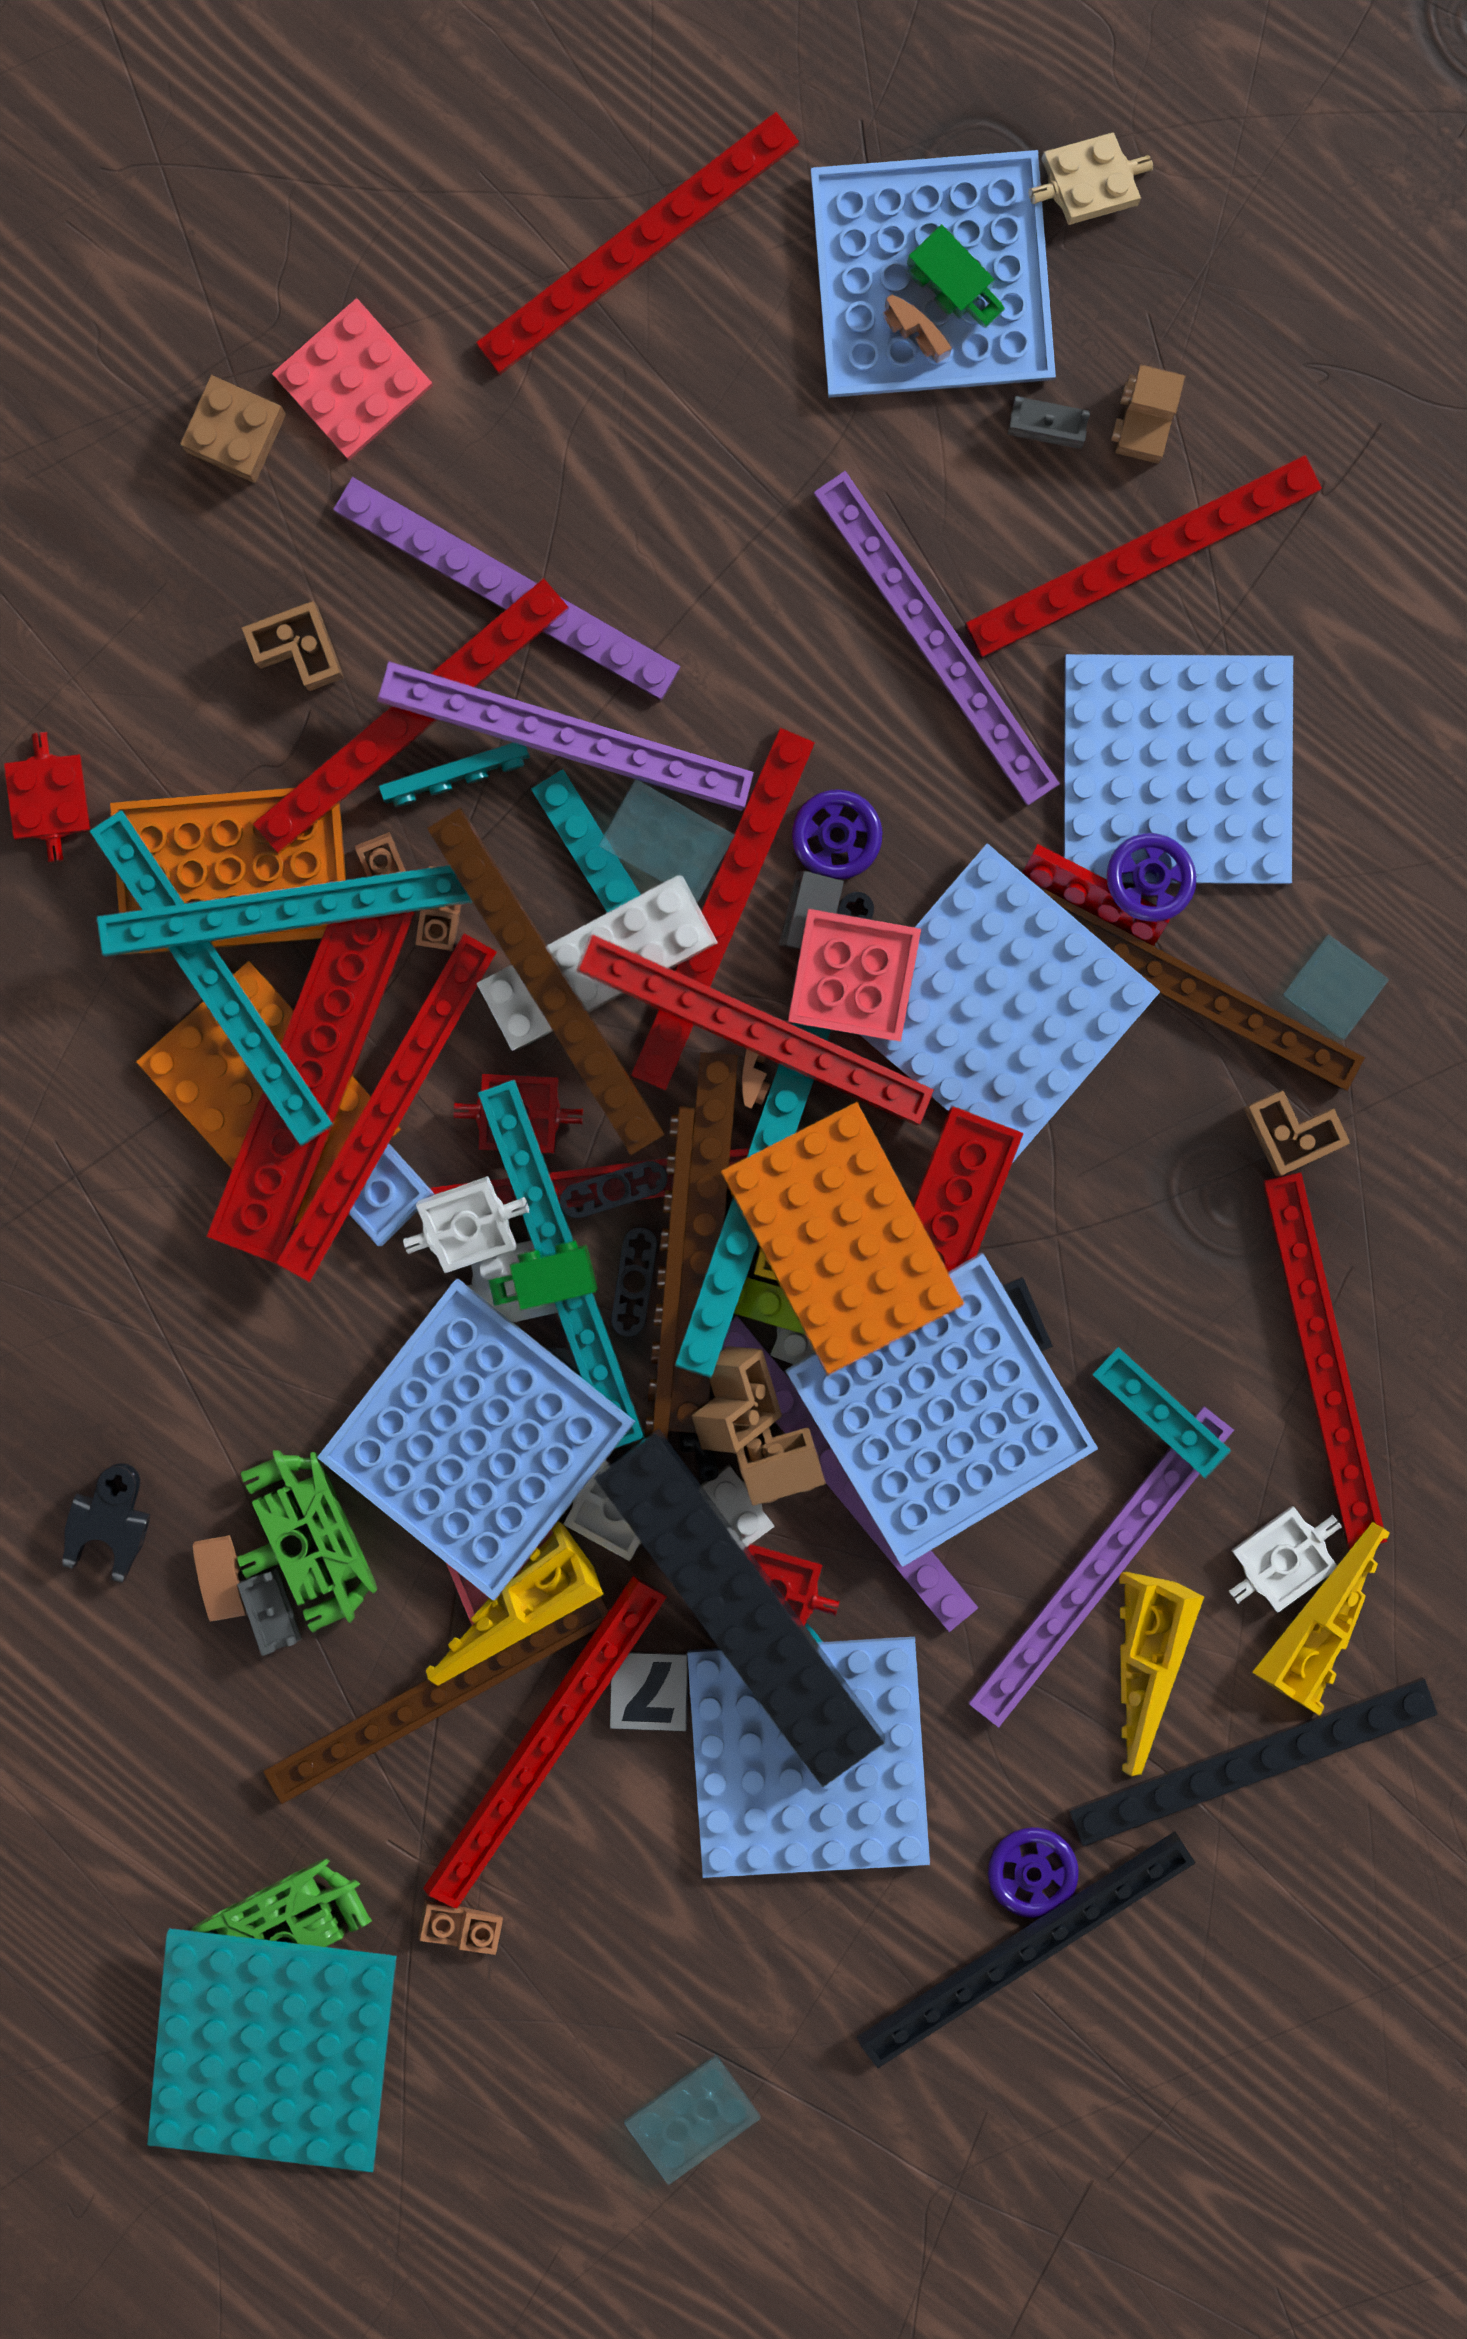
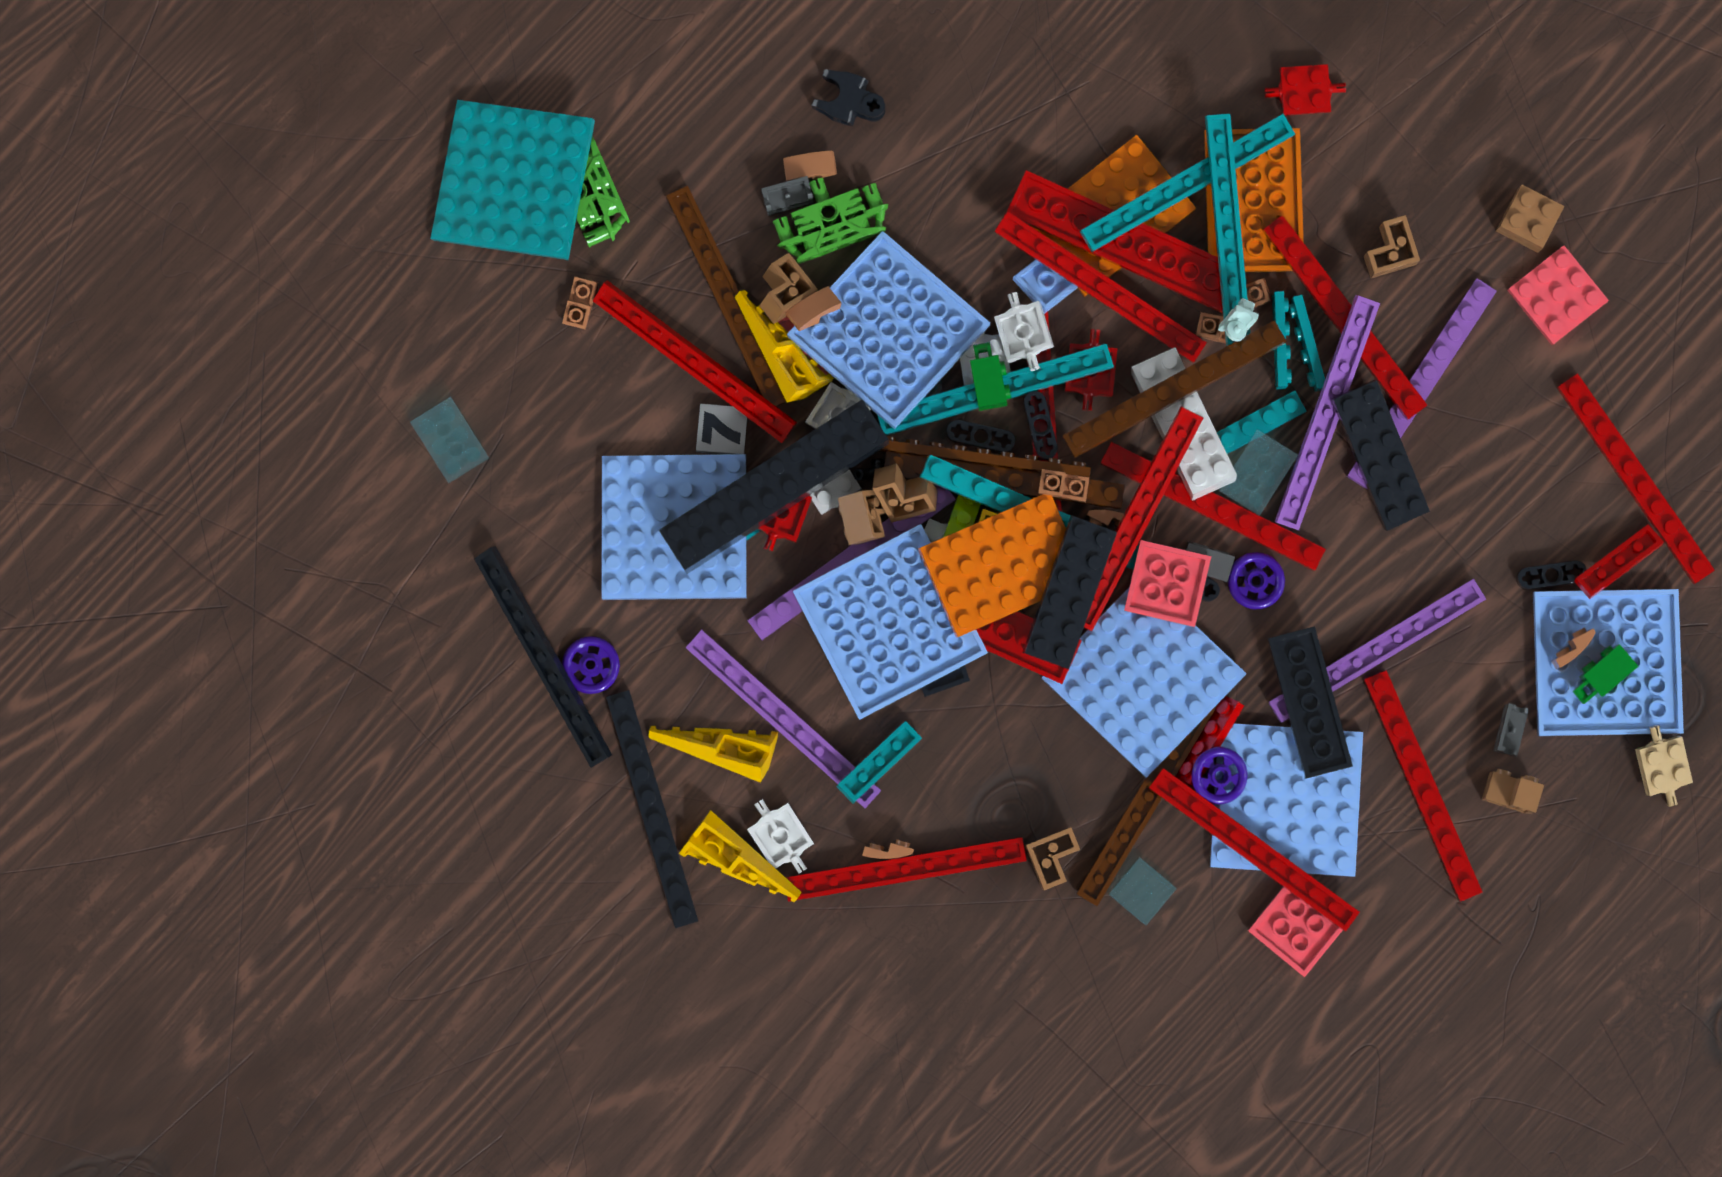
camera: 85 degrees right, 5 degrees down
(398, 819) = (1281, 354): none -> teal plate
(420, 1598) = (789, 287): none -> medium nougat brick
(433, 885) = (1239, 320): none -> light aqua hips
(452, 1566) = (810, 309): none -> nougat slope
(627, 648) = (1380, 455): none -> black plate
(710, 1149) = (1063, 485): none -> nougat slope
(773, 263) = (1619, 561): none -> red plate
(803, 339) = (1532, 571): none -> black beam
(880, 1130) = (1069, 592): none -> black plate
(1027, 740) = (1310, 702): none -> black plate
(1264, 816) = (1254, 850): none -> red plate
(1297, 1376) = (896, 850): none -> nougat slope
(1375, 740) = (1294, 931): none -> coral plate

